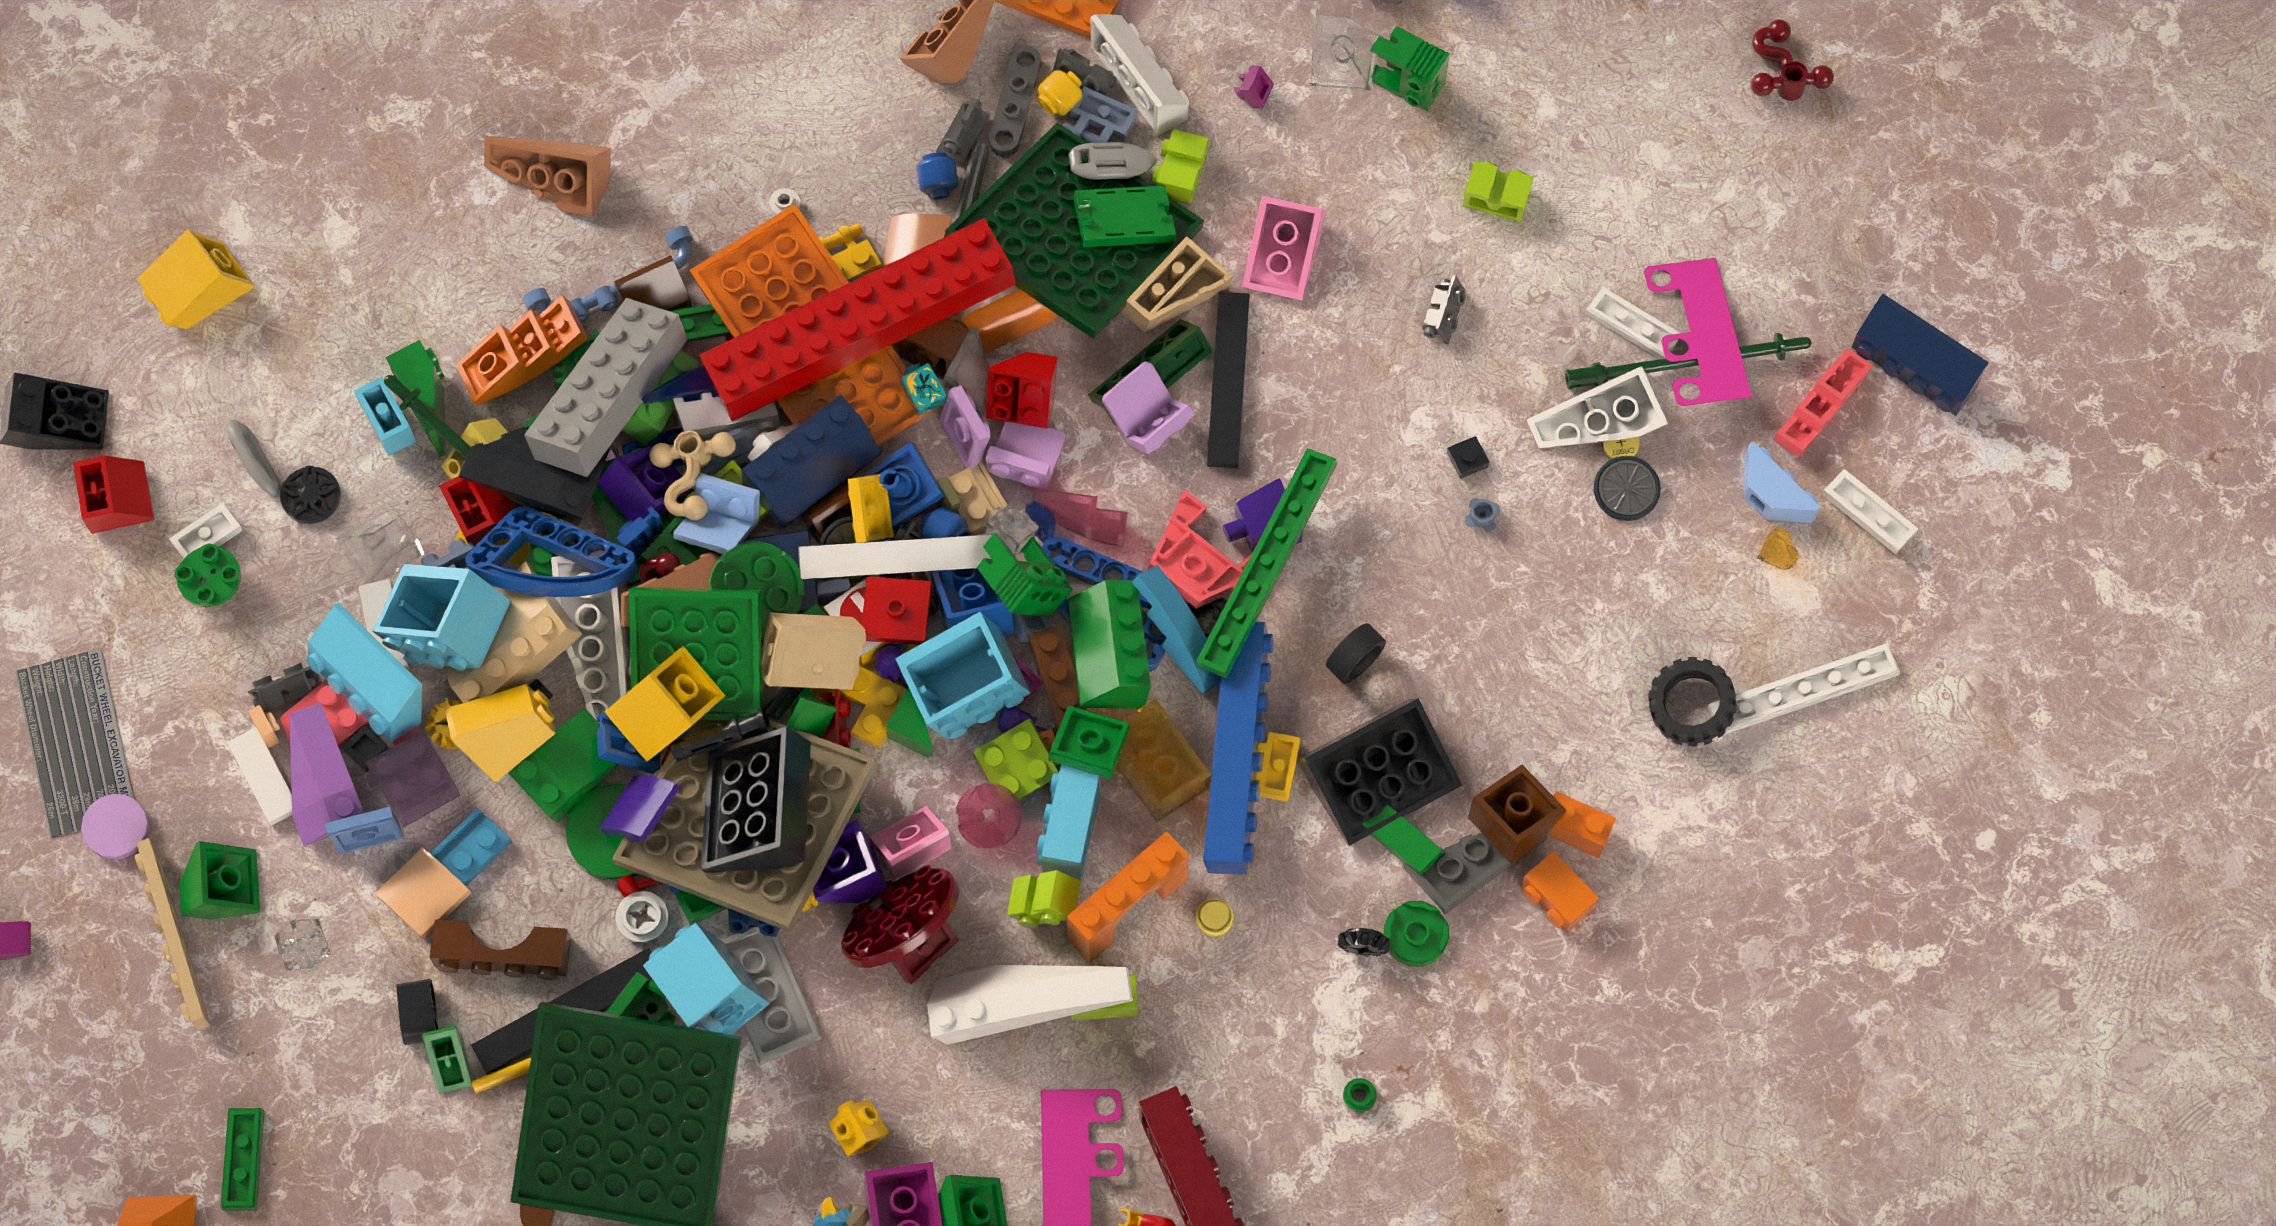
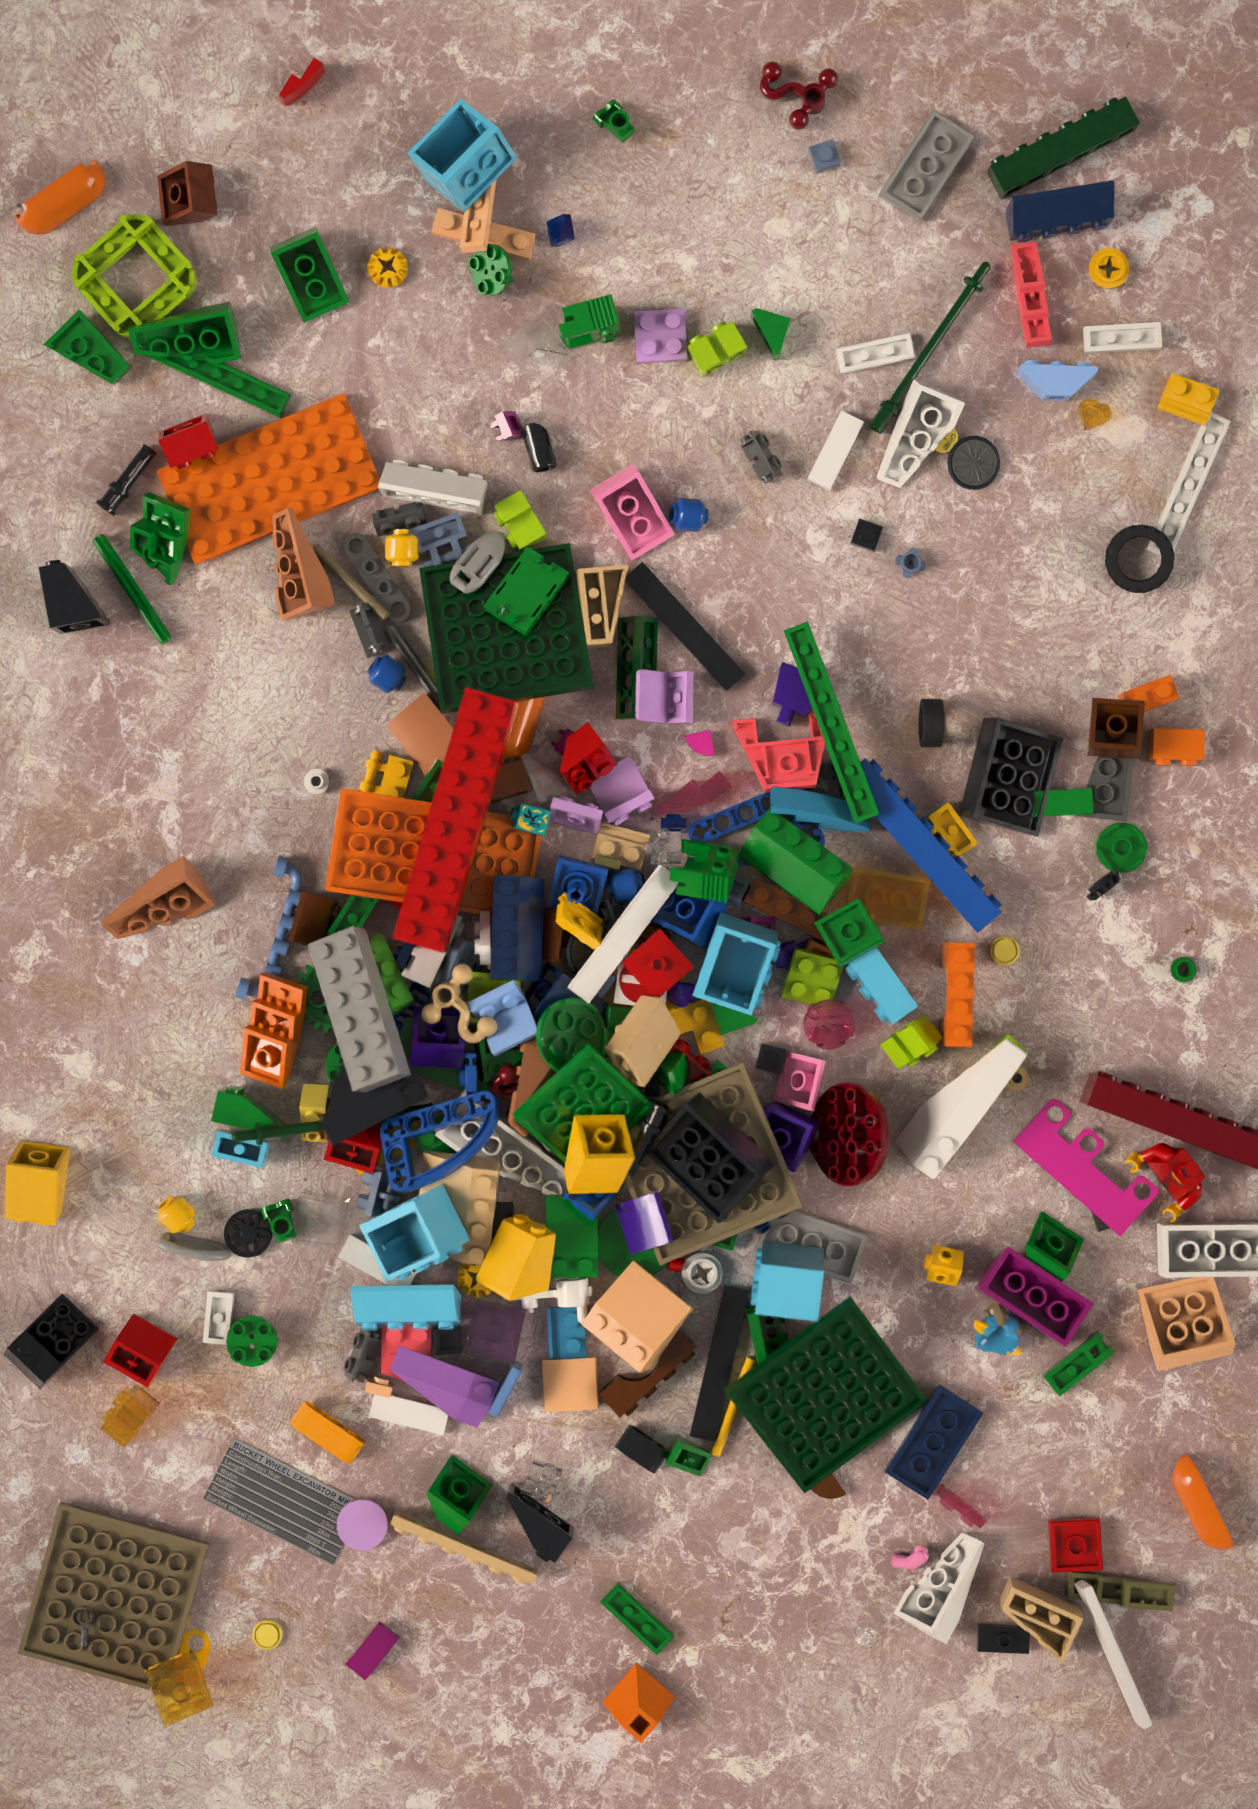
camera: 45 degrees left, 20 degrees up
(42, 533) = (129, 1415): none -> clear yellow brick
(178, 718) = (327, 1432): none -> light orange beam
(255, 977) = (543, 1528): none -> black slope
(272, 417) = (176, 1214): none -> yellow head
(348, 508) = (278, 1215): none -> green plate
(513, 812) = (570, 1293): none -> white piece
(542, 886) = (637, 1317): none -> light nougat slope
(684, 384) = (397, 964): clear blue slope -> none
(906, 796) = (770, 1058): none -> black plate
(989, 81) = (348, 580): none -> dark tan bar
(1108, 1043) = (1023, 1082): none -> tan plate
(1139, 483) = (701, 743): none -> dark pink tile
(1261, 126) = (539, 448): none -> black arm
(1330, 293) = (688, 514): none -> blue head
(1460, 140) = (660, 336): none -> lavender plate
(1514, 365) = (835, 450): none -> white tile
(1564, 221) = (772, 329): none -> green slope
(1710, 335) = (927, 314): dark pink piece -> none
(1755, 134) = (824, 156): none -> sand blue plate
(1838, 222) = (927, 166): none -> light grey tile
(1878, 616) = (1188, 399): none -> yellow plate
(1917, 434) = (1117, 260): none -> yellow gear
(1980, 313) = (1062, 147): none -> dark green brick

